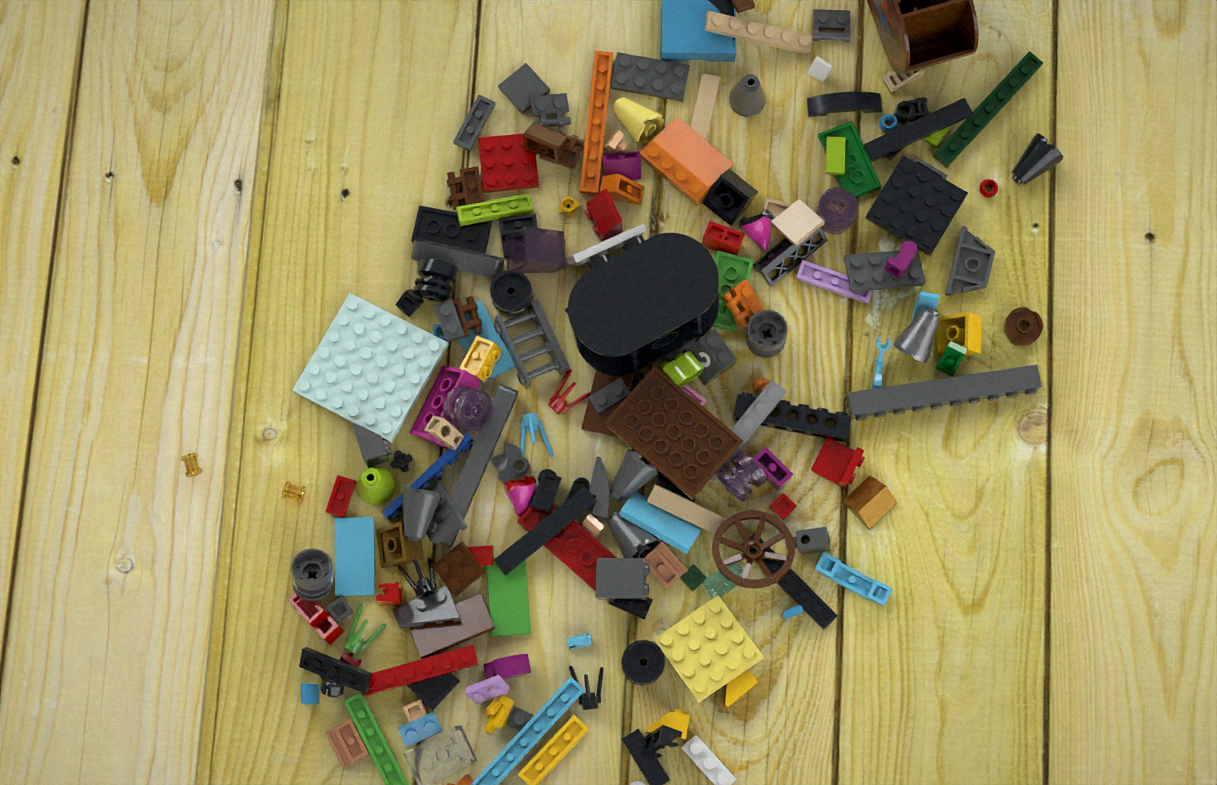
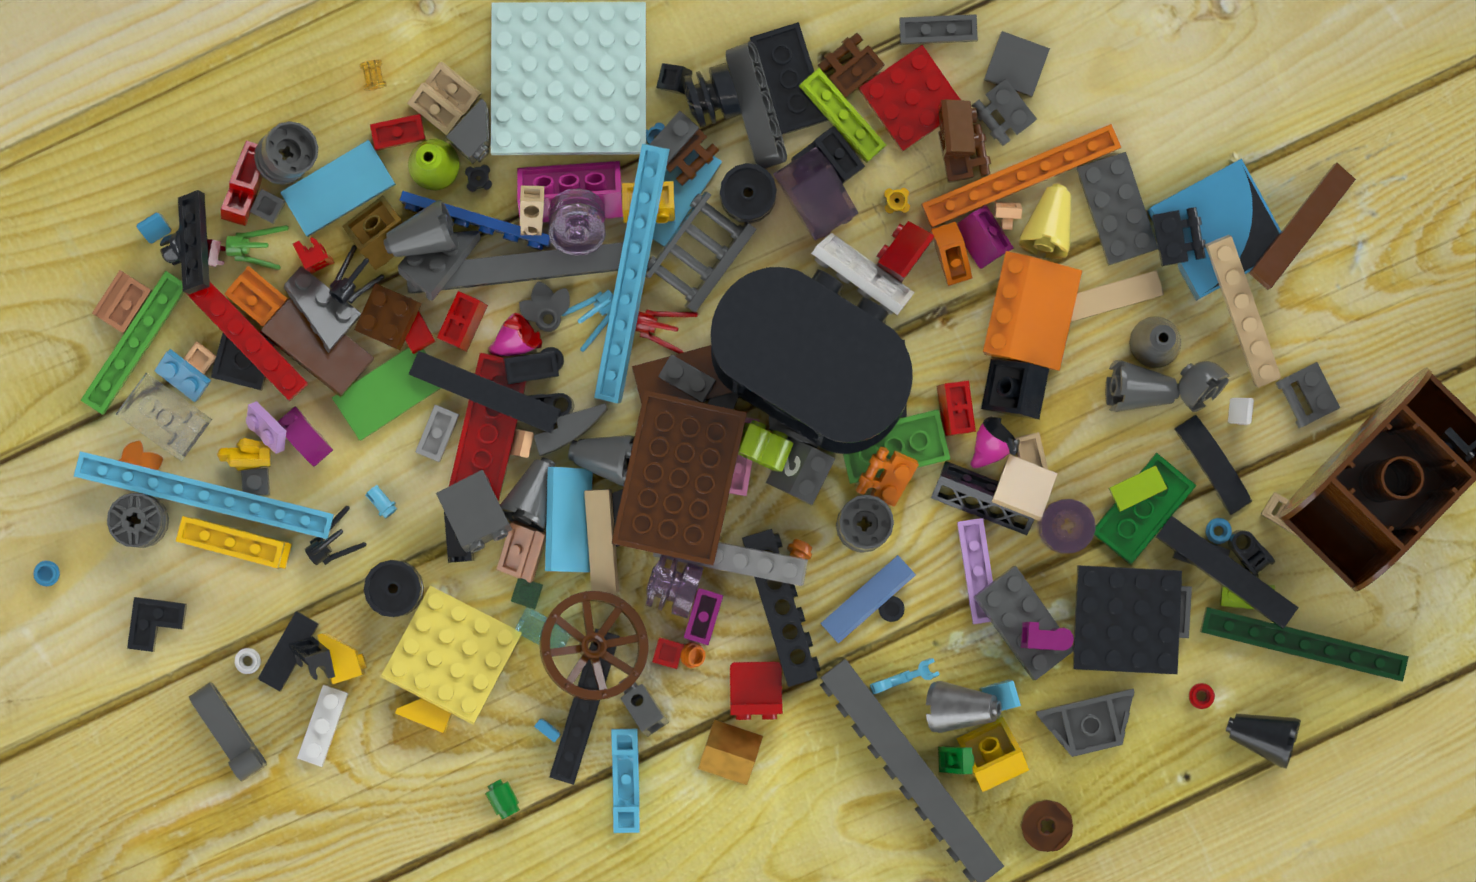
camera: 60 degrees right, 10 degrees up
(336, 455) = (444, 98): none -> tan slope
(395, 650) = (256, 296): none -> orange plate
(489, 521) = (462, 321): none -> red hinge
(521, 392) = (631, 273): none -> medium azure plate
(554, 578) = (437, 433): none -> light grey plate
(687, 49) = (1171, 238): none -> black plate
(770, 122) = (1138, 387): none -> dark grey cone
(789, 82) = (1200, 383): none -> dark grey cylinder
(793, 490) = (692, 655): none -> orange plate
(816, 360) = (868, 599): none -> medium blue tile
(822, 667) = (502, 799): none -> green brick
(830, 349) = (892, 609): none -> black tile

